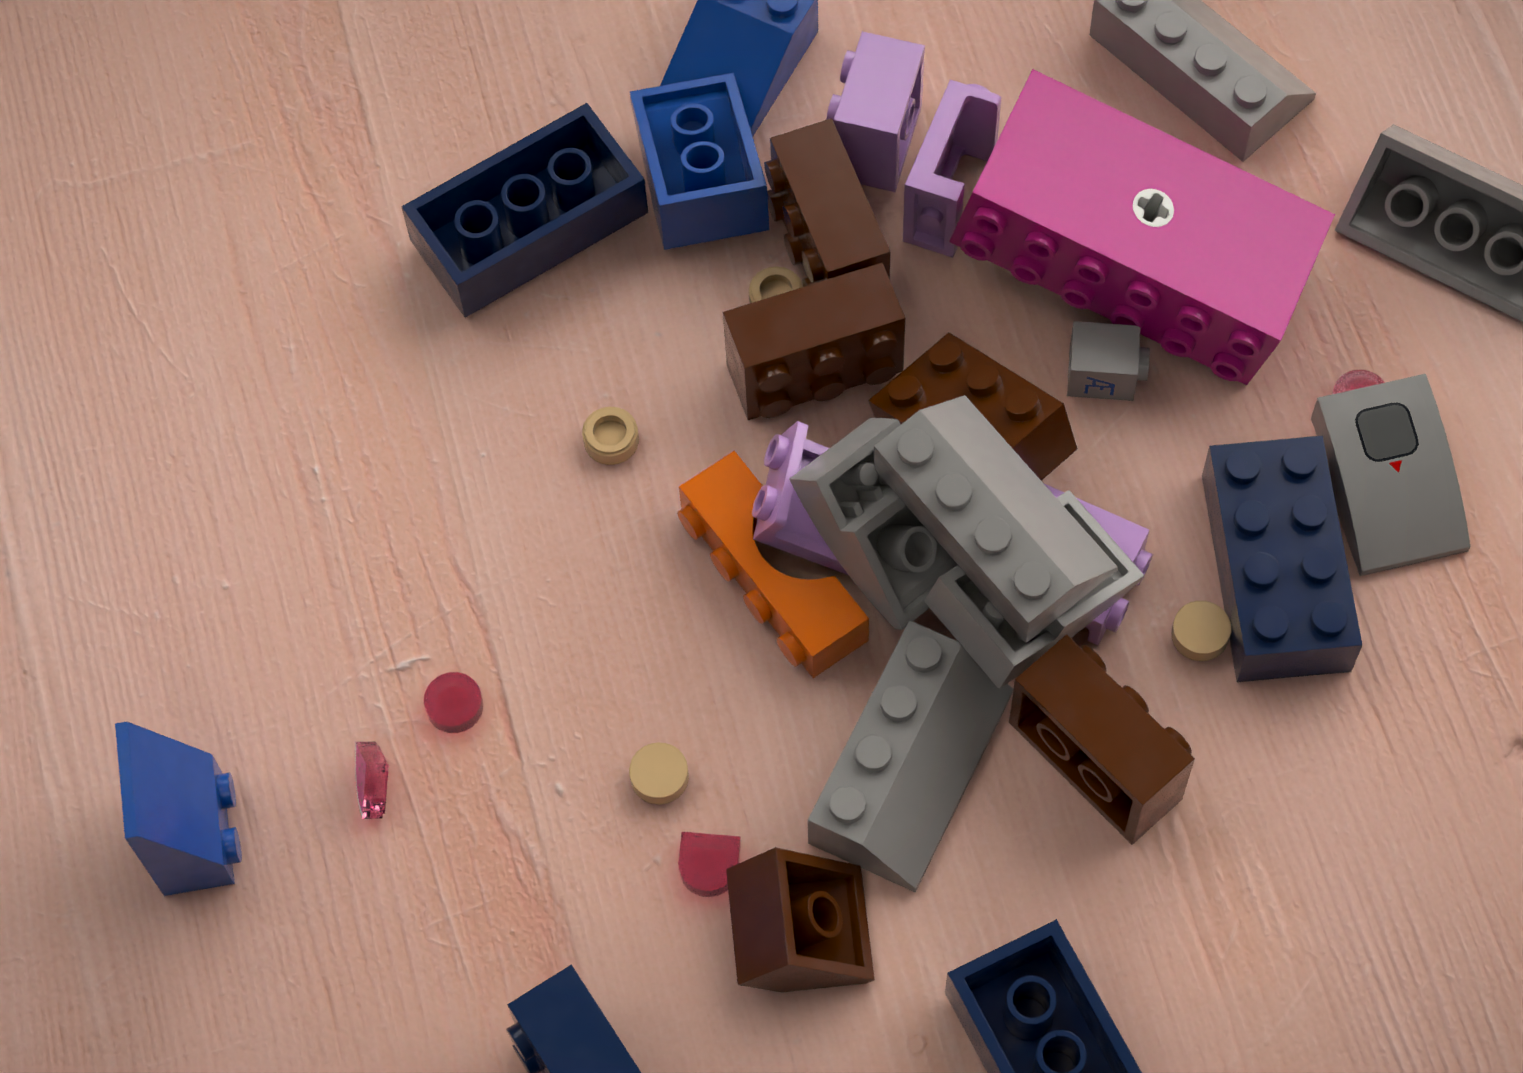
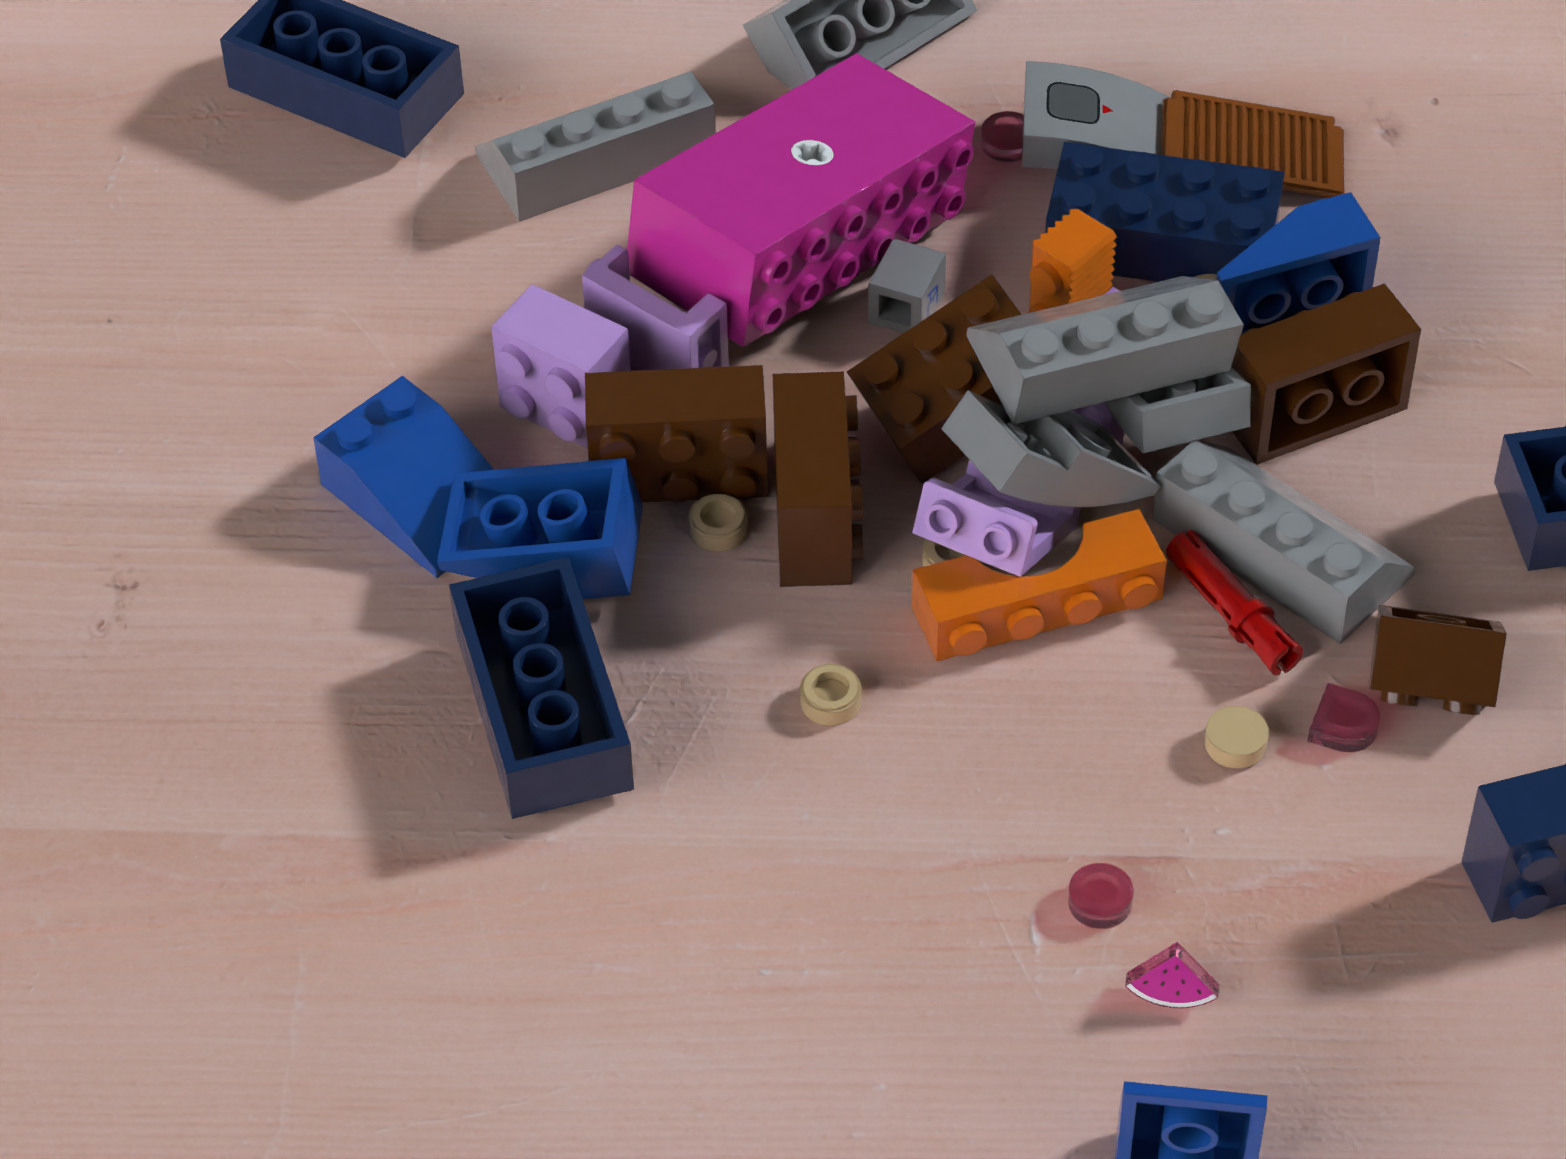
camera: 75 degrees left, 15 degrees down
(794, 751) = (1248, 618): none -> red pin
(1144, 484) = (1071, 262): none -> orange brick
(1227, 689) = (1303, 262): none -> blue slope
(1434, 620) = (1257, 136): none -> dark orange window

